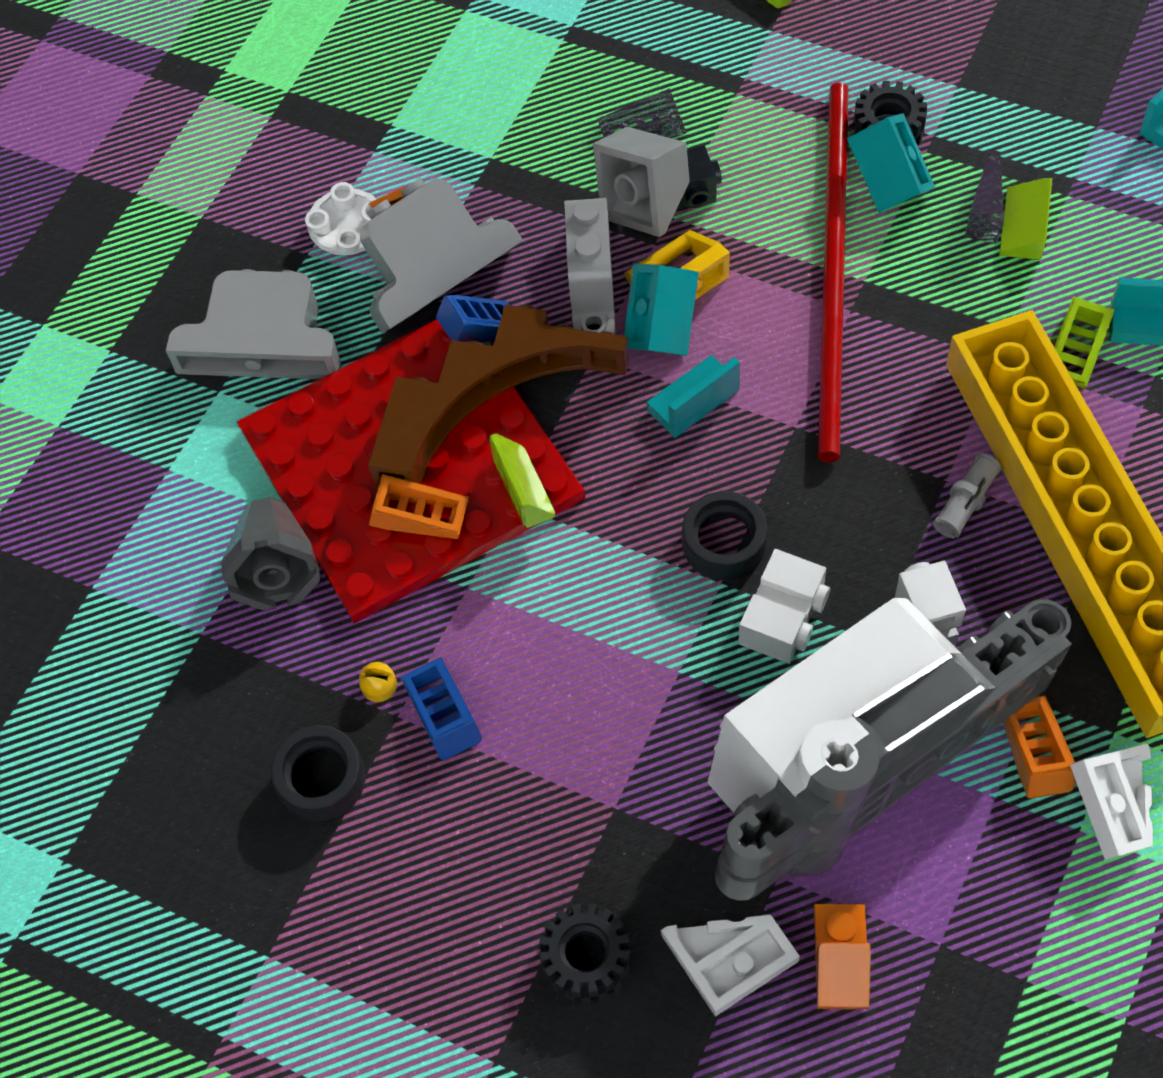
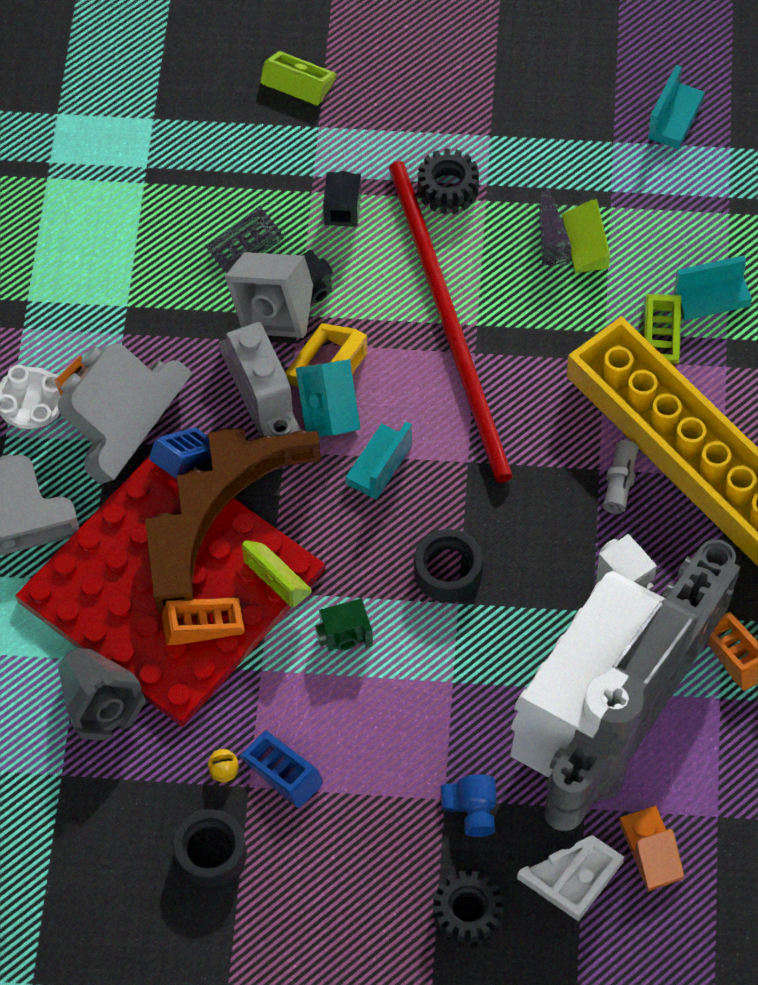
camera: 25 degrees left, 0 degrees up
(575, 567) = (344, 626): none -> dark green brick
(649, 820) = (475, 796): none -> blue piece
(762, 105) = (342, 199): none -> black brick
(783, 606) = (514, 606): white brick -> none
(890, 162) = (465, 221): teal panel -> none

